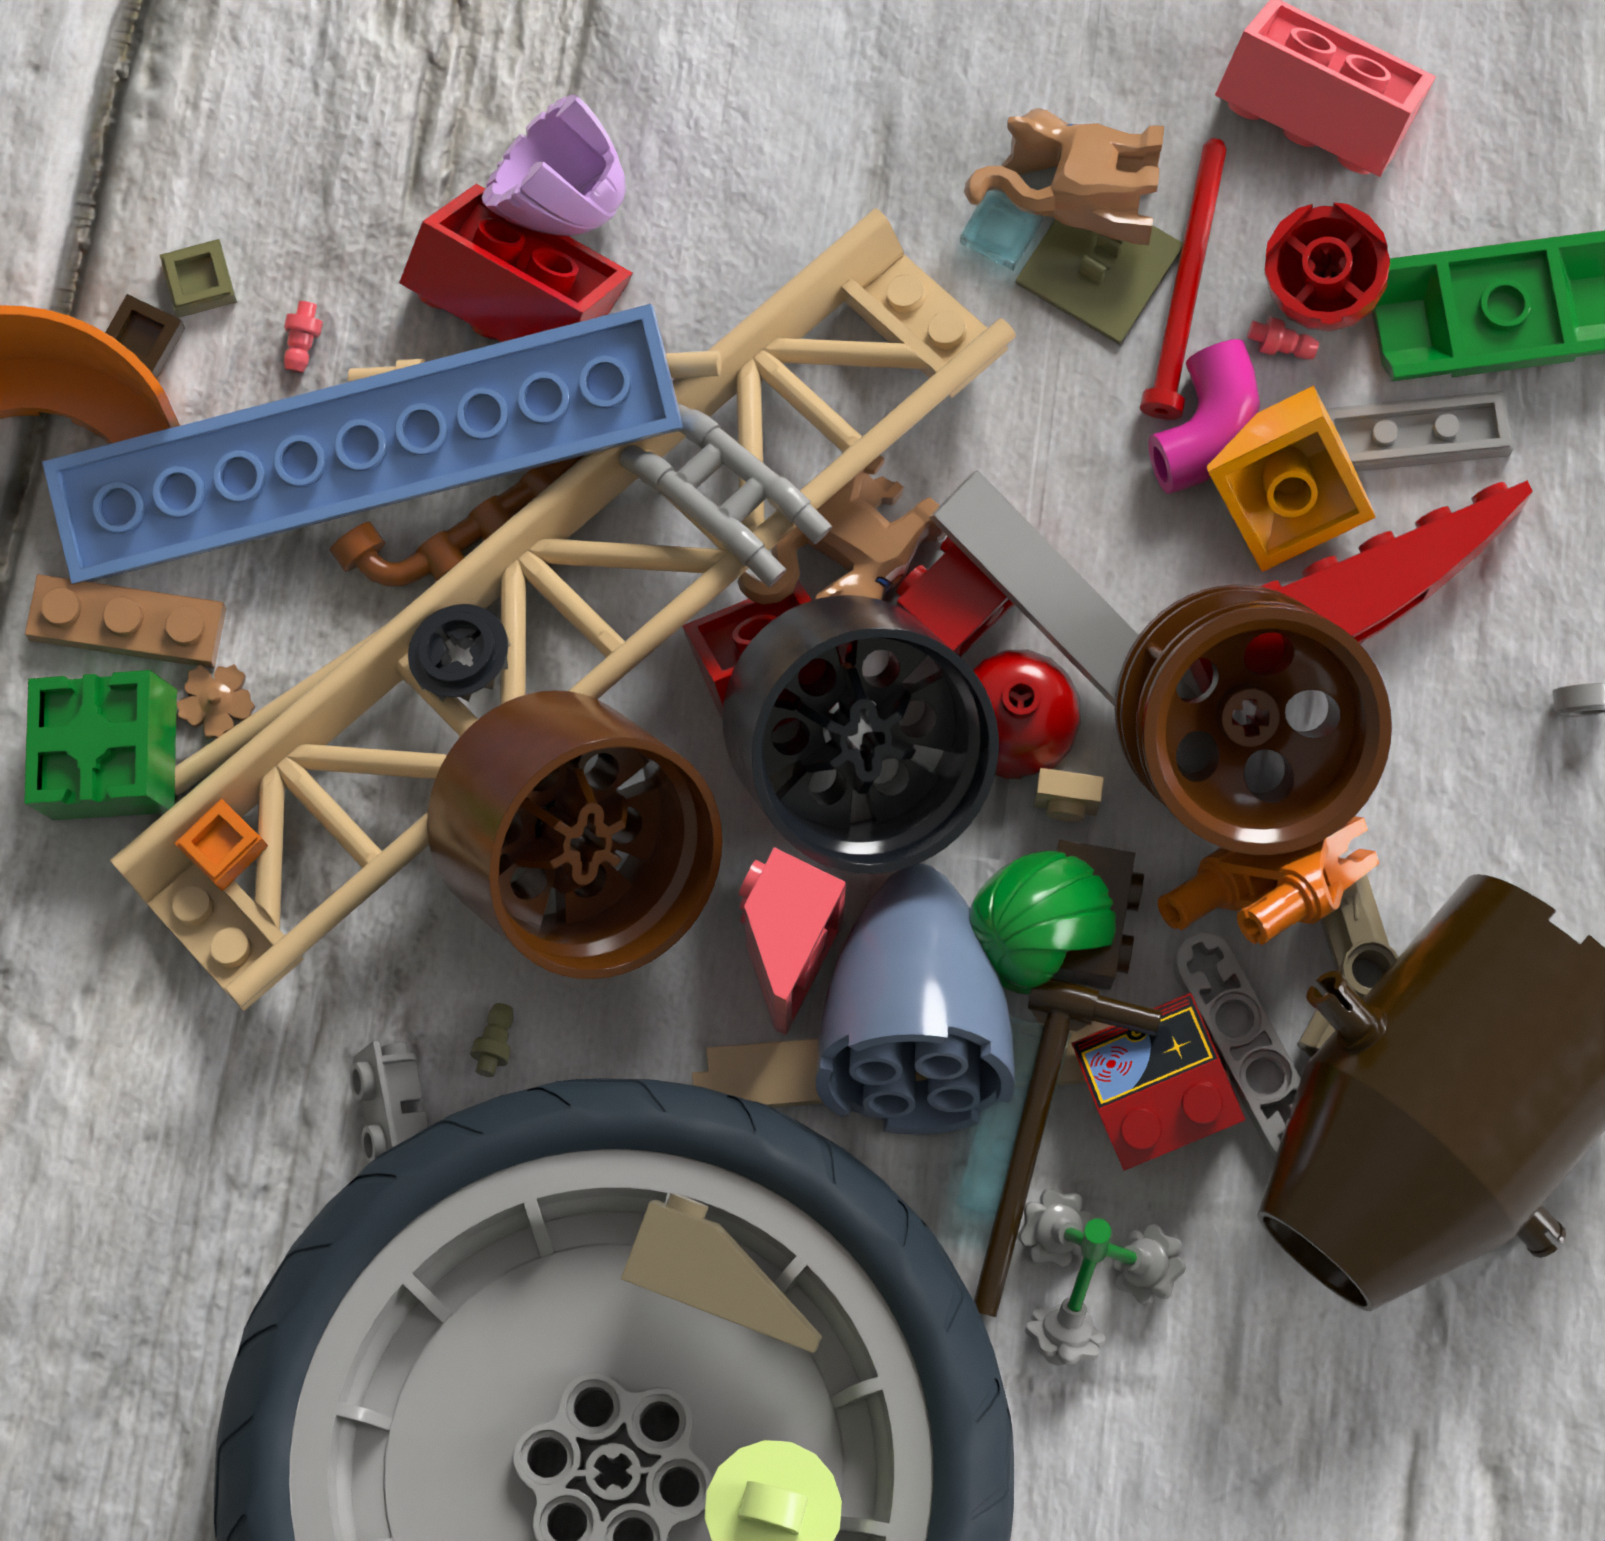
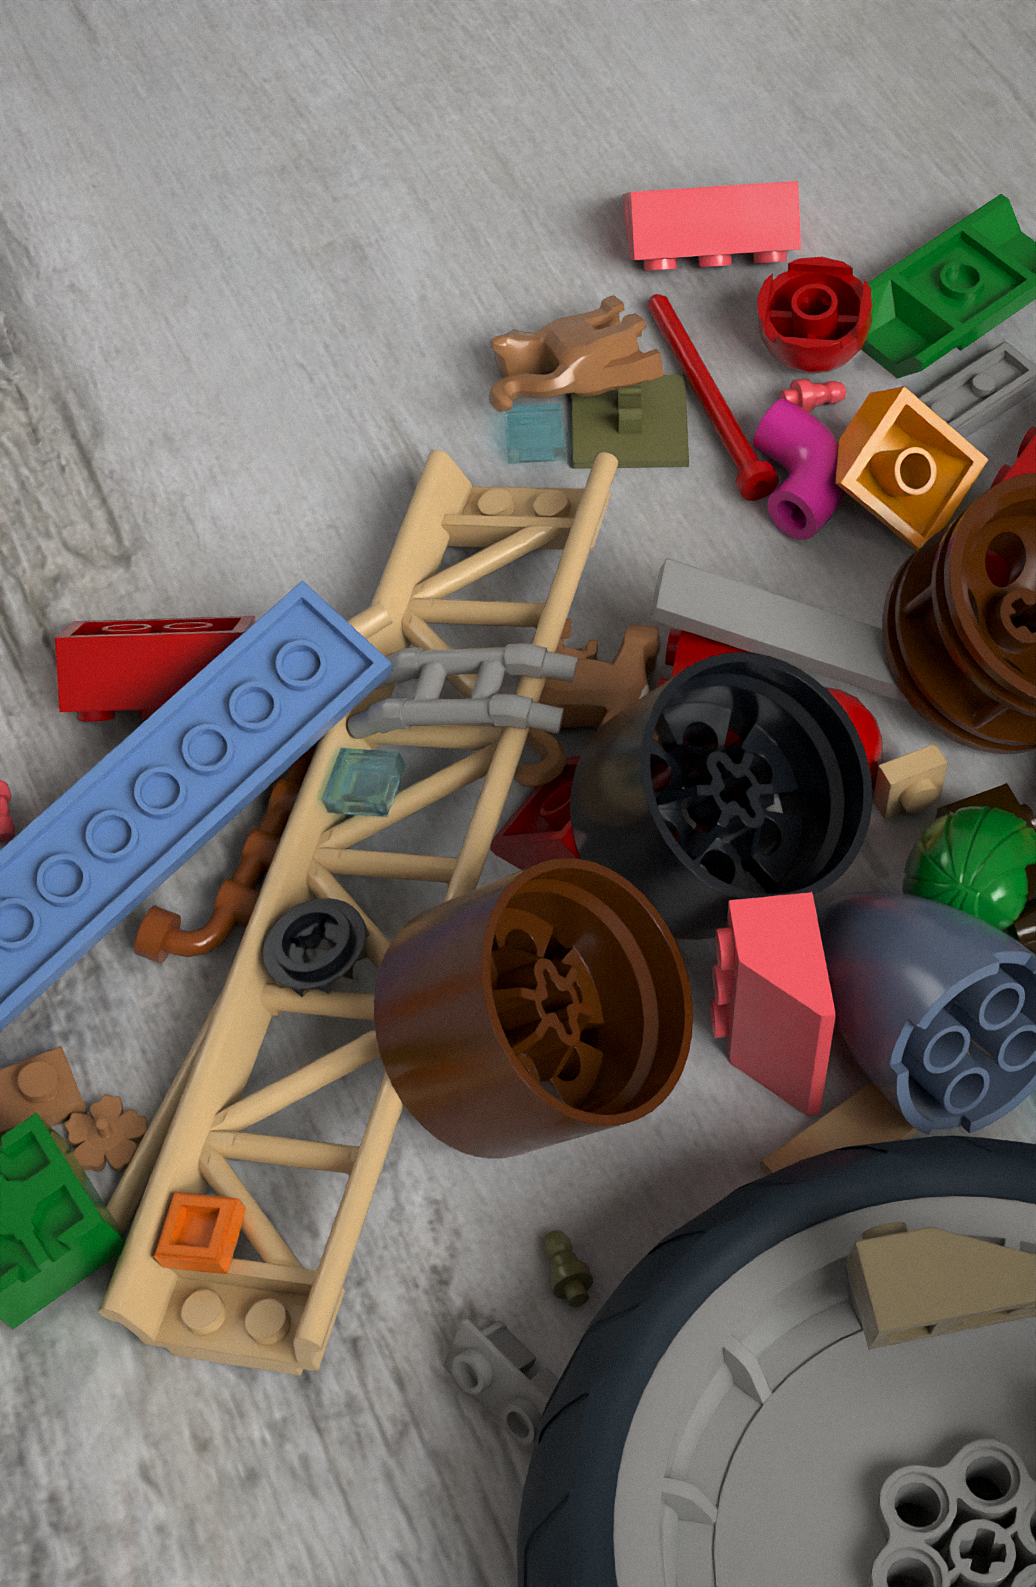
camera: 30 degrees left, 20 degrees down
(559, 174) = (146, 562): lavender hair -> none
(597, 518) = (363, 782): none -> clear light blue tile

